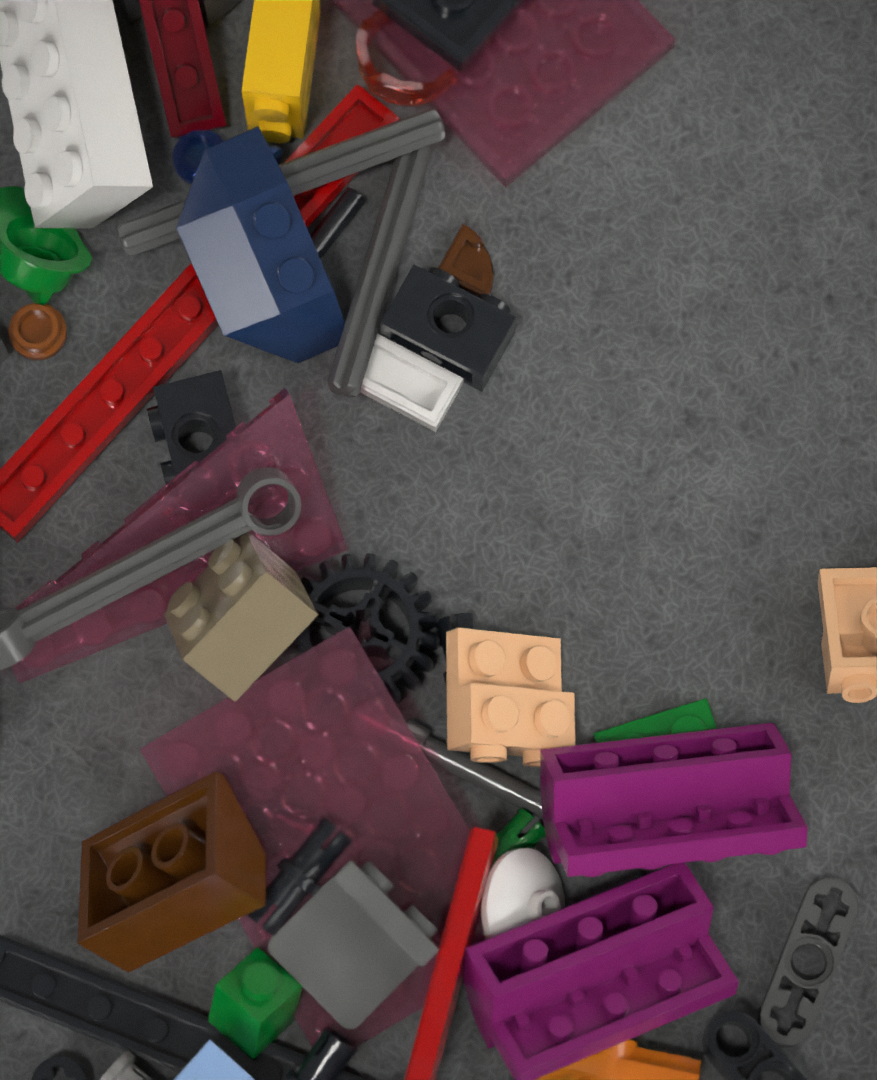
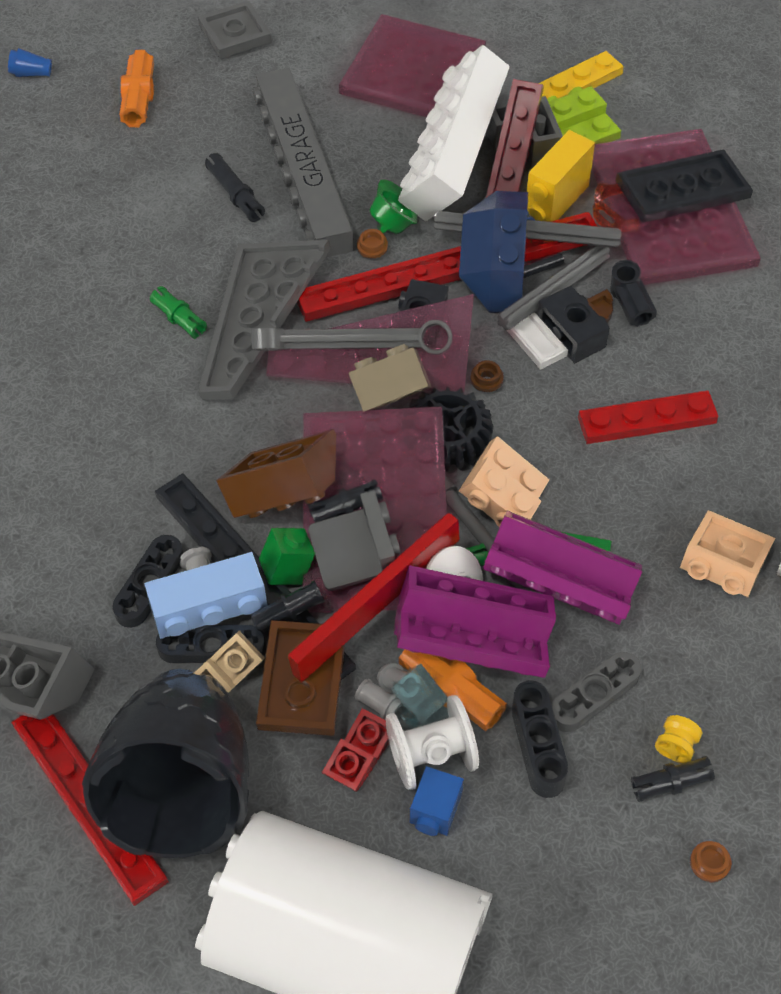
camera: 30 degrees right, 20 degrees down
(365, 480) = (486, 369): none -> reddish brown plate
(513, 222) = (631, 293): none -> black piece
(646, 439) = (647, 417): none -> red plate

